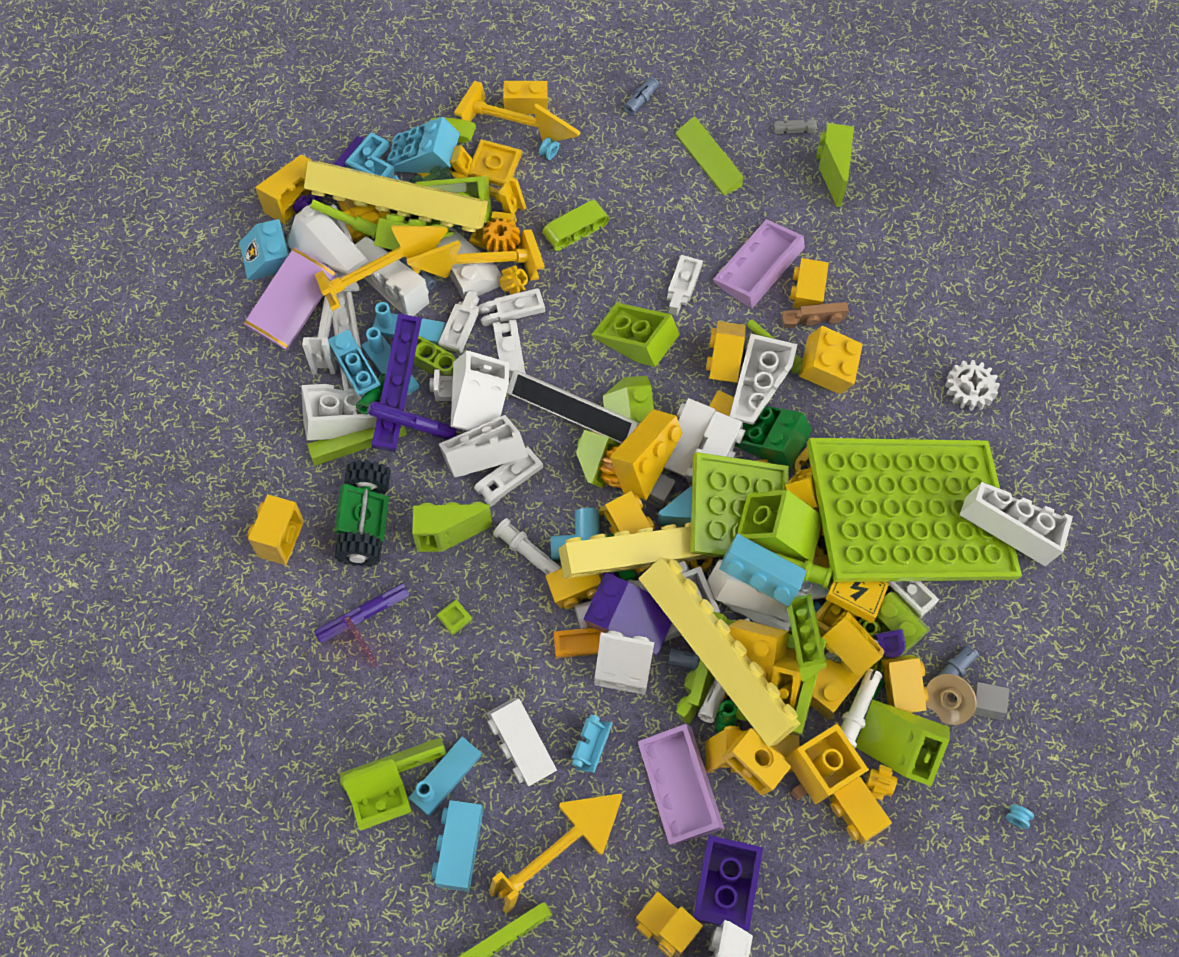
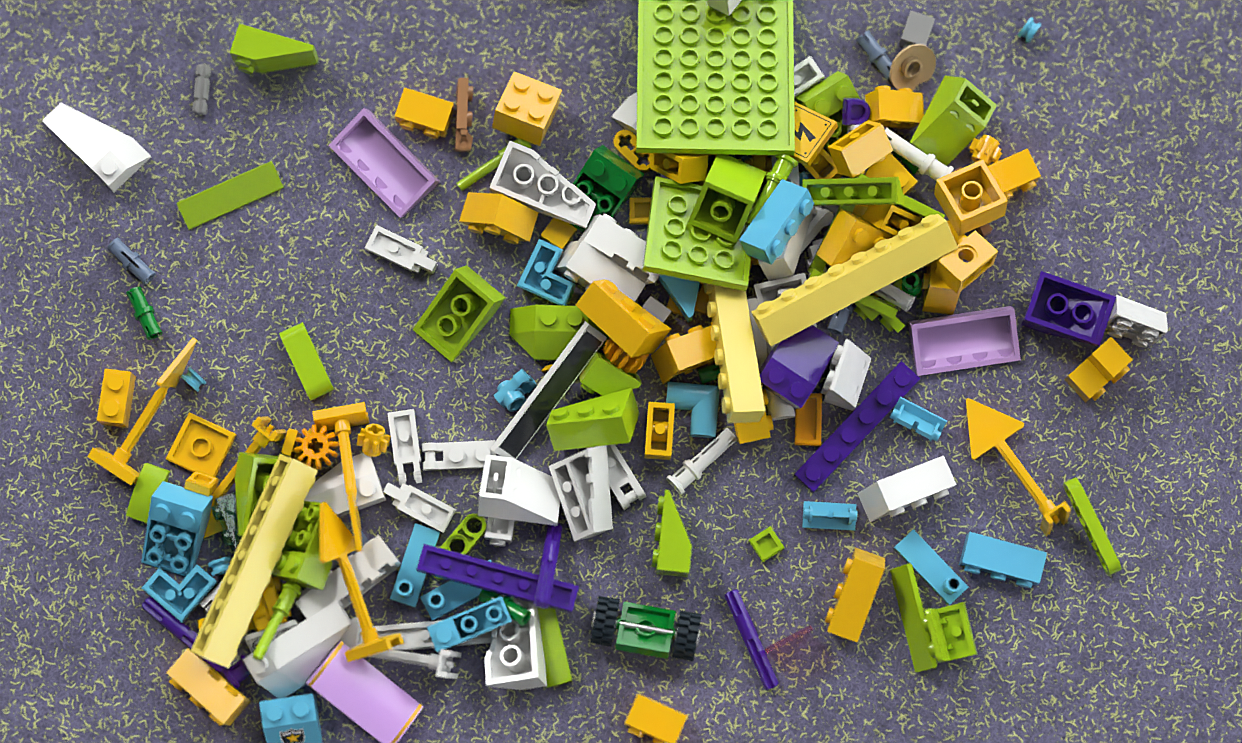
camera: 85 degrees left, 15 degrees up
(411, 700) = (855, 594): none -> yellow wedge
(487, 671) = (829, 515): none -> medium azure hinge
(549, 505) = (659, 430): none -> yellow brick
(550, 448) = (594, 422): none -> lime wedge
(572, 383) = (512, 391): none -> medium azure plate
(579, 689) = (856, 426): none -> dark purple plate
(599, 109) = (144, 313): none -> green pin
(678, 390) = (539, 275): none -> medium azure brick
(730, 64) = (103, 149): none -> white wedge

